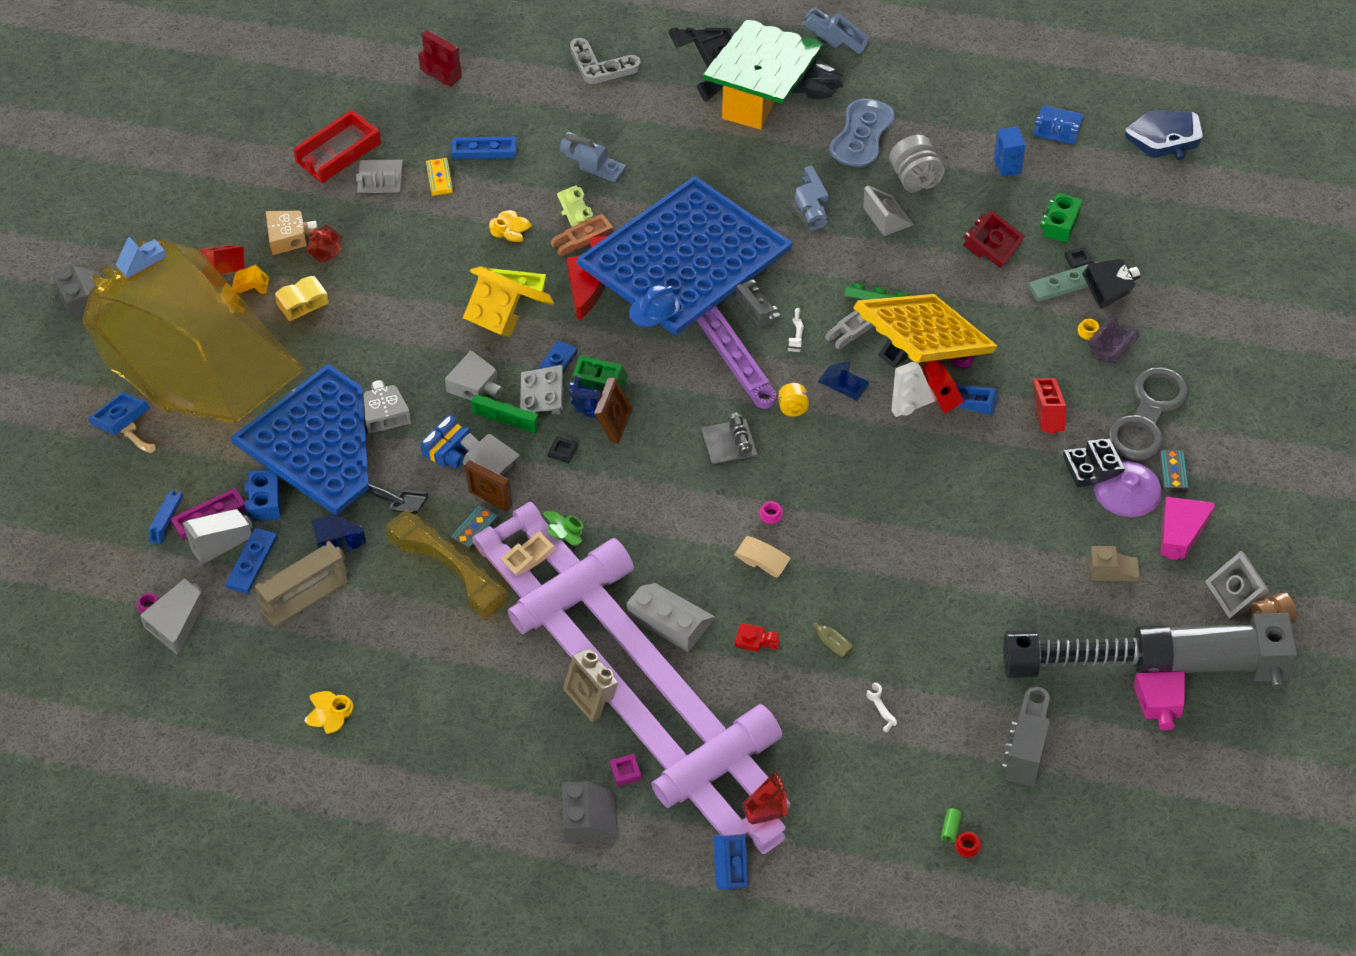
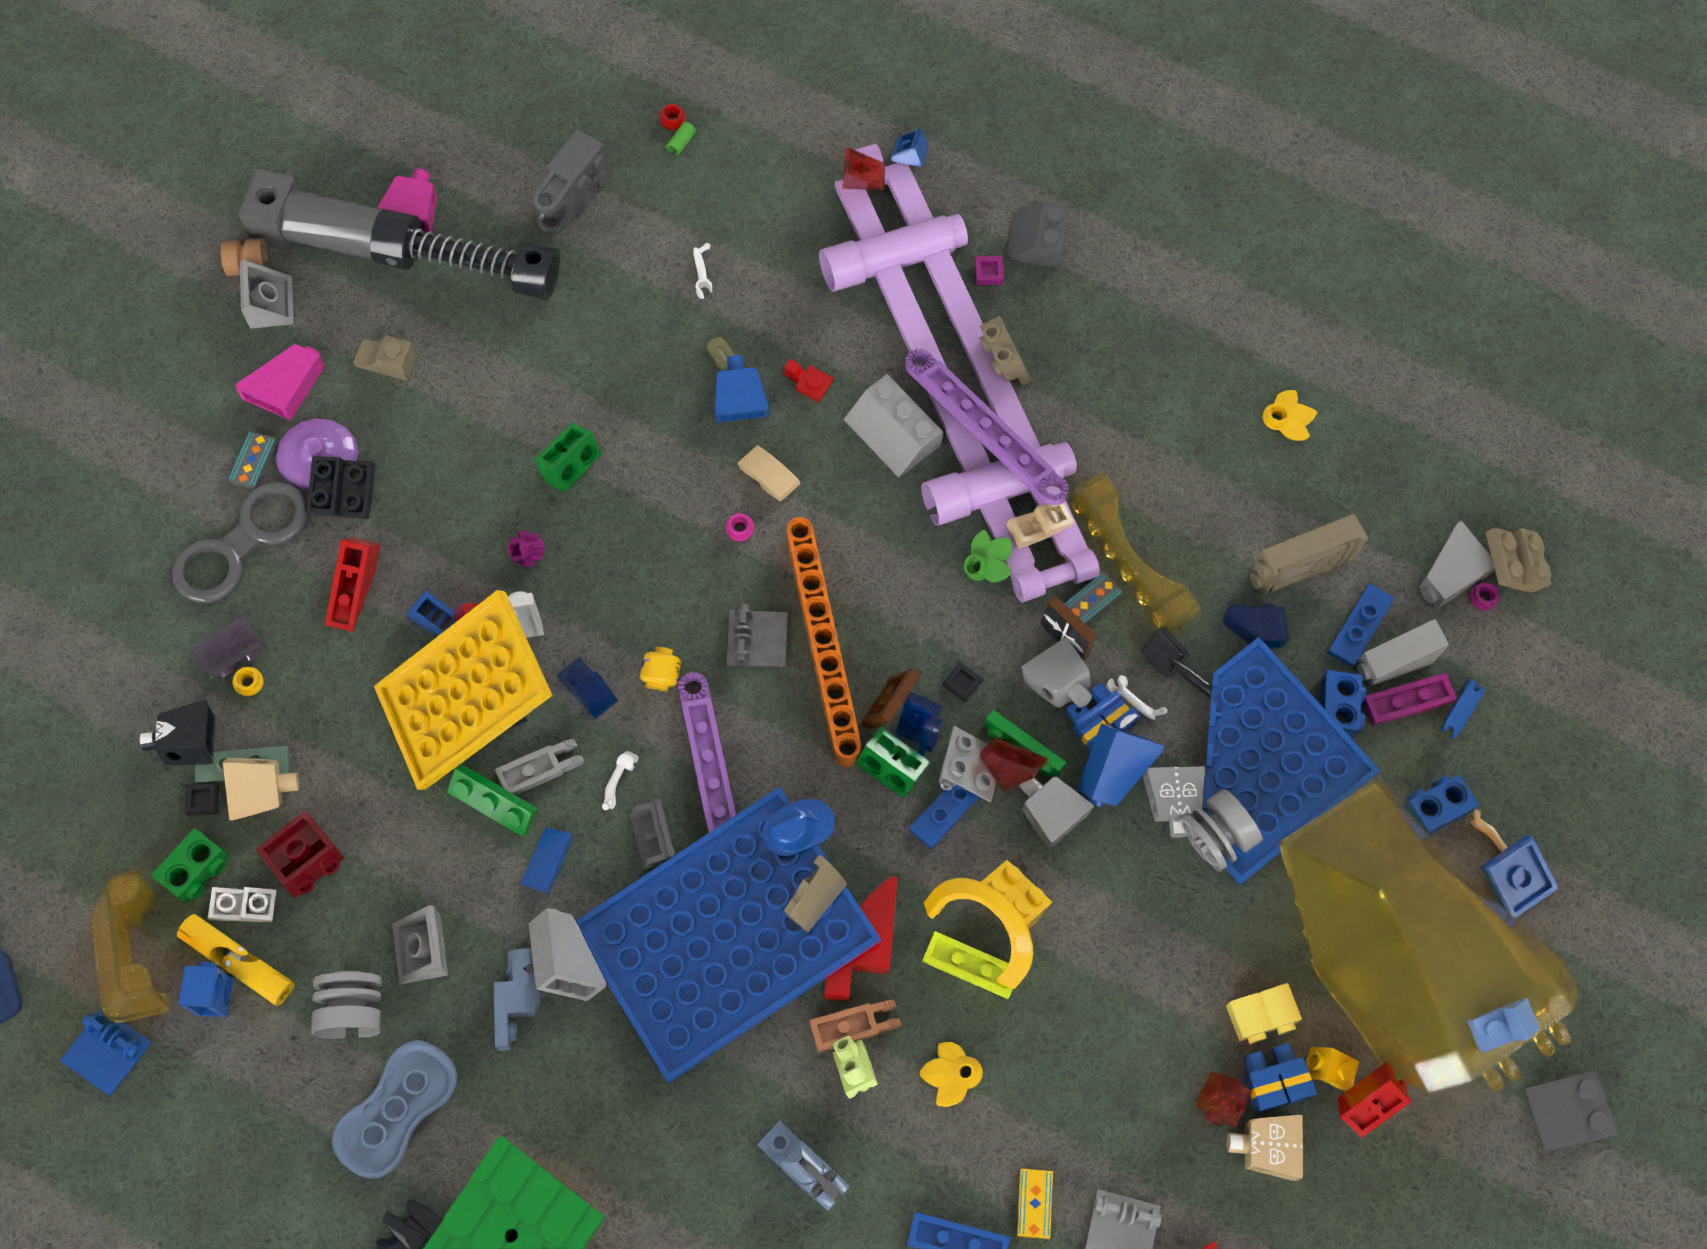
camera: 170 degrees left, 15 degrees up
(121, 628) = (1519, 559): none -> dark tan plate
(181, 445) = (1442, 810): none -> blue brick
(287, 263) = (1279, 1083): none -> blue hips
(348, 371) = (1226, 826): none -> light grey wheel
(430, 409) = (1116, 764): none -> blue slope
(441, 469) = (1132, 699): none -> white piece
(510, 392) = (1011, 763): none -> clear red slope
(592, 607) = (987, 427): none -> medium lavender plate
(629, 264) = (815, 895): none -> dark tan slope
(679, 447) = (823, 653): none -> orange beam
(790, 218) = (563, 957): none -> light grey slope
(807, 604) = (739, 393): none -> blue torso
(825, 276) = (547, 860): none -> blue slope
(926, 519) = (568, 457): none -> green brick
(929, 452) = (526, 548): none -> magenta gear
(1017, 182) = (239, 962): none -> yellow piece
(1018, 211) = (242, 905): none -> white slope
(1044, 263) = (255, 786): none -> tan torso
(1056, 140) = (124, 987): none -> clear yellow windscreen

